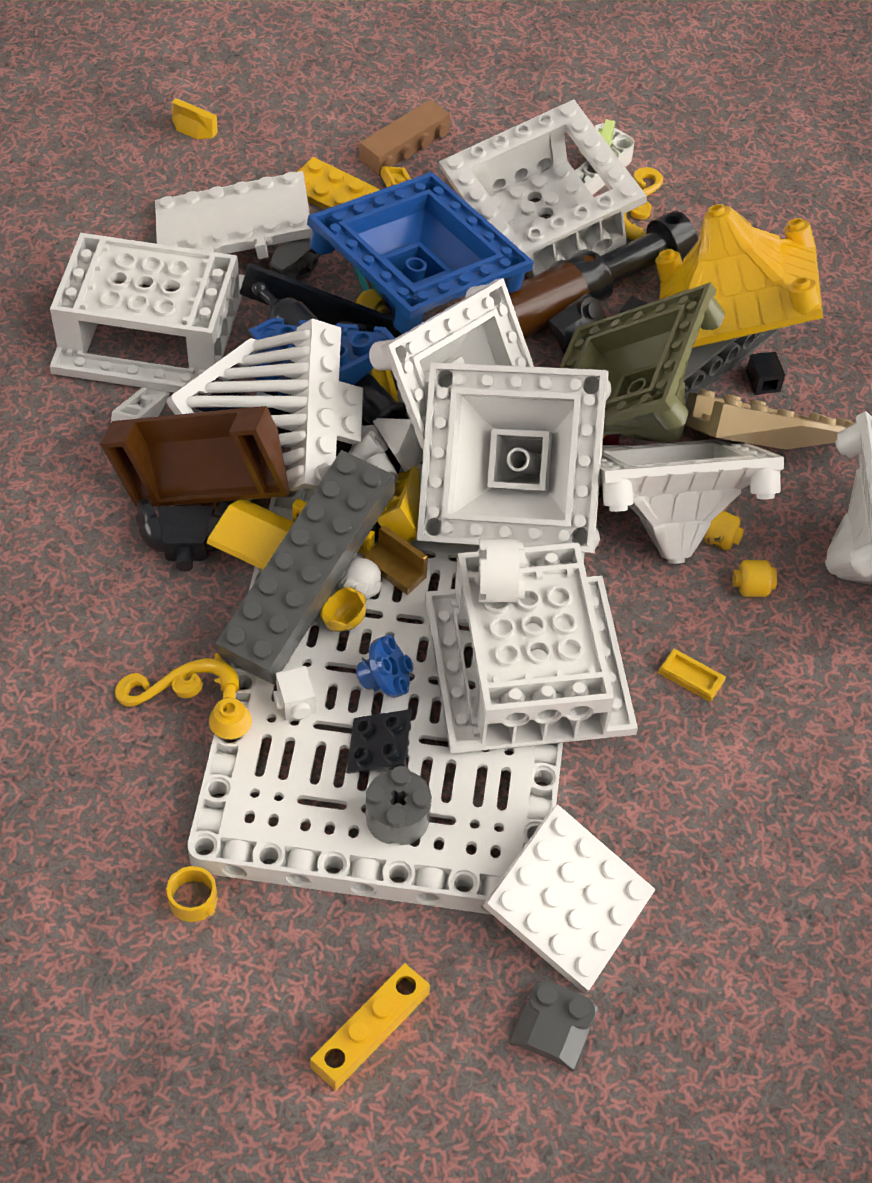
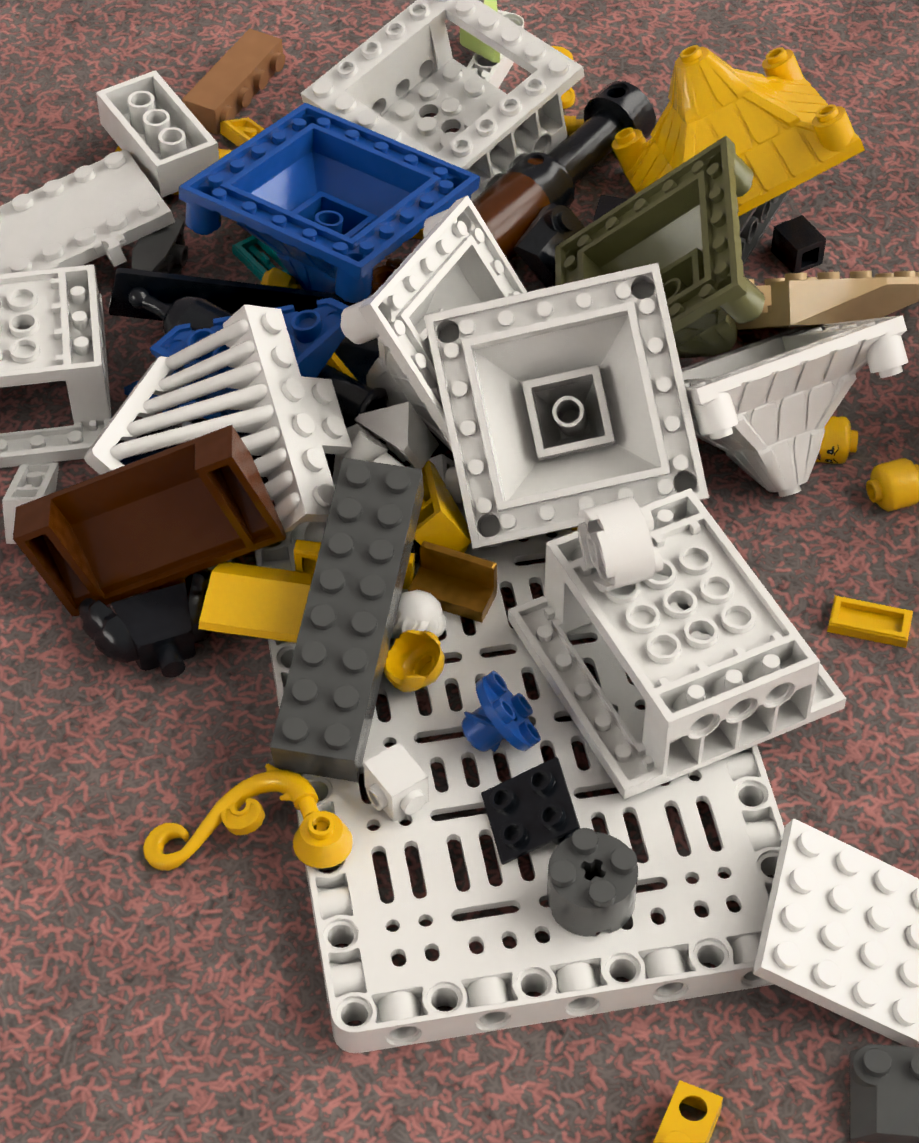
camera: 15 degrees left, 5 degrees down
(190, 874) = (356, 1055): yellow piece -> none
(328, 162) = (157, 131): none -> white brick

